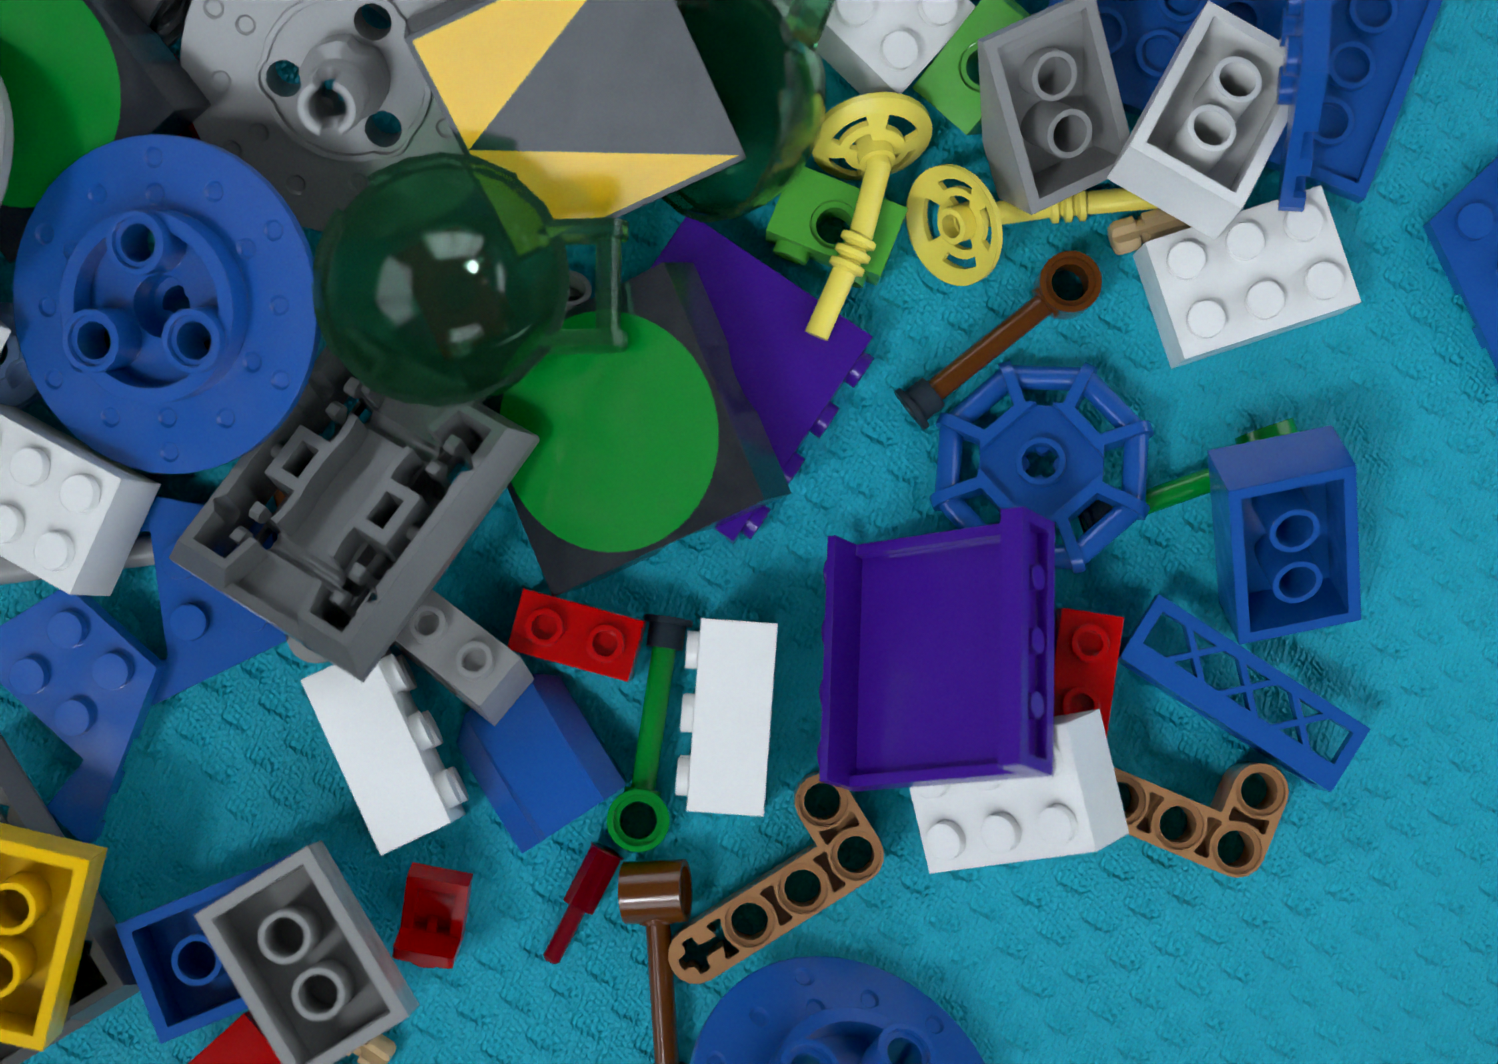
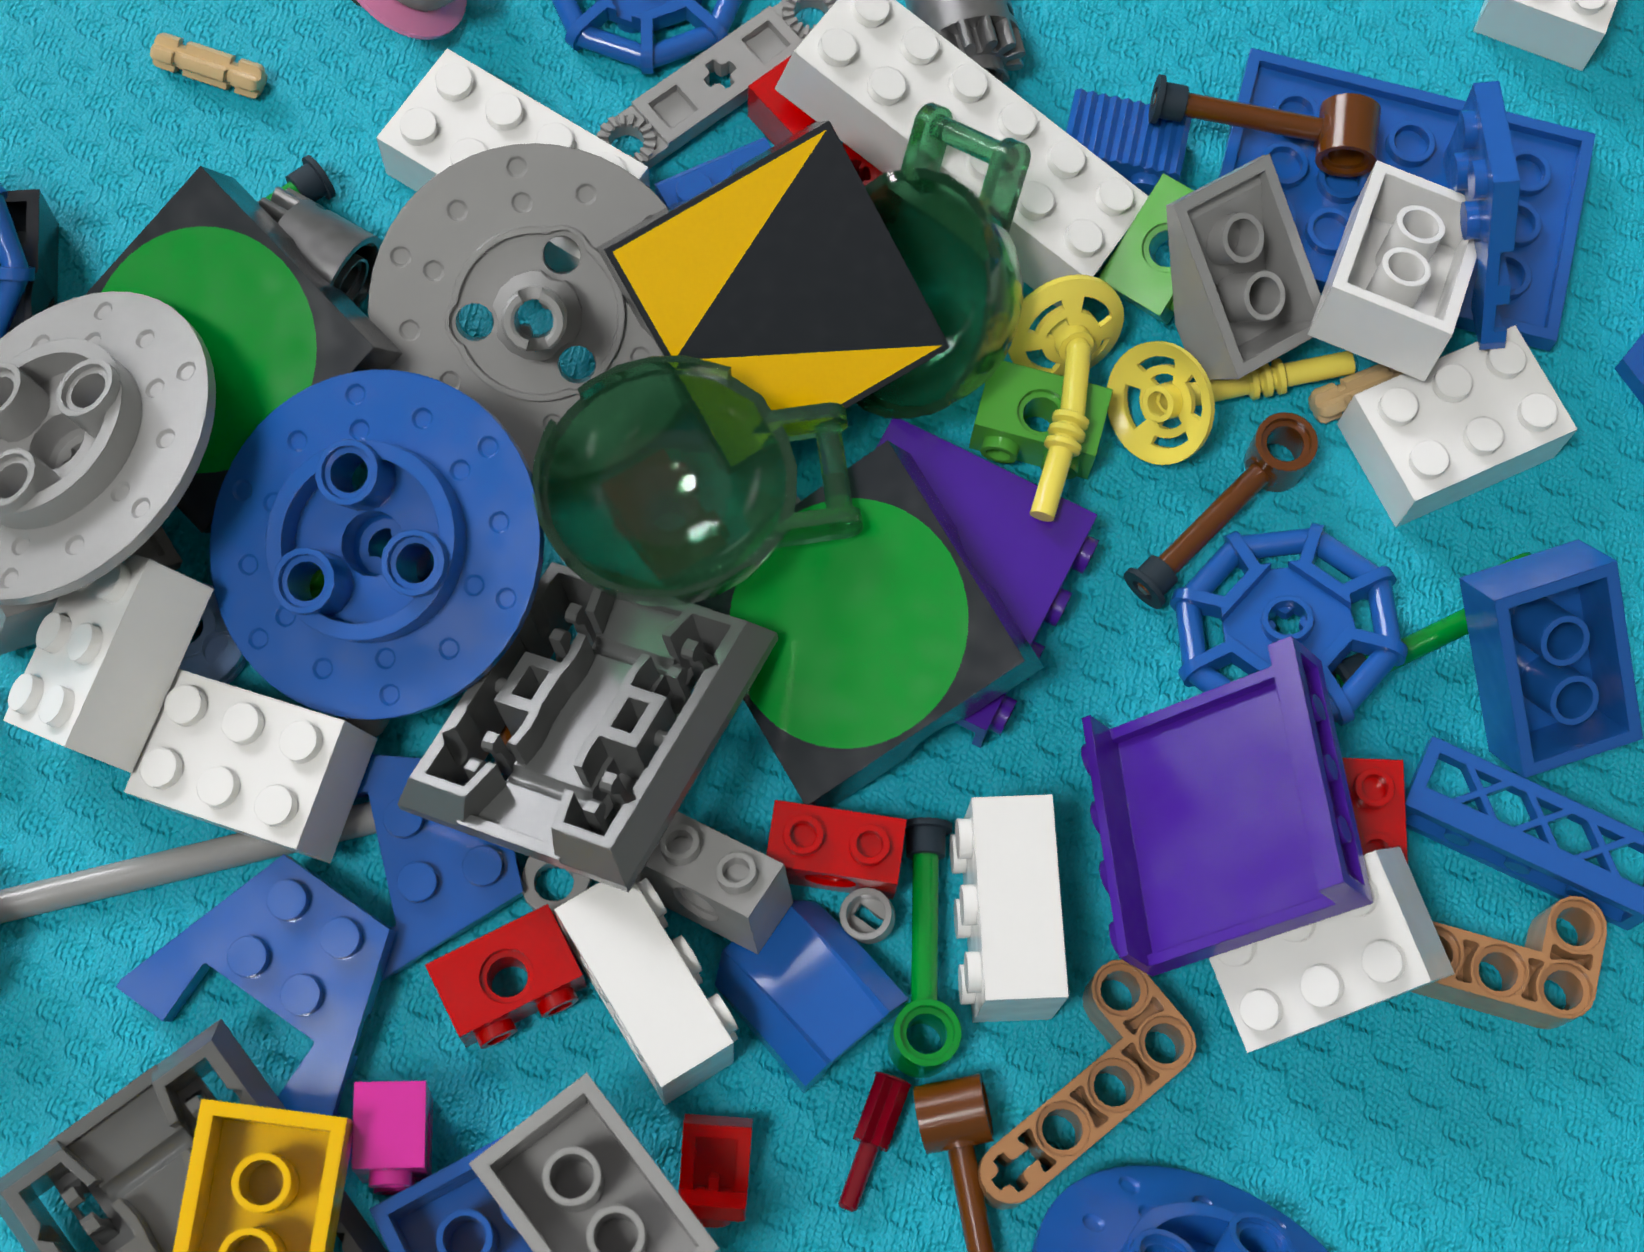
camera: 10 degrees left, 15 degrees down
(143, 859) = (392, 1134): none -> dark pink brick
(227, 728) = (467, 976): none -> red brick
(593, 707) = (877, 904): none -> light grey hinge

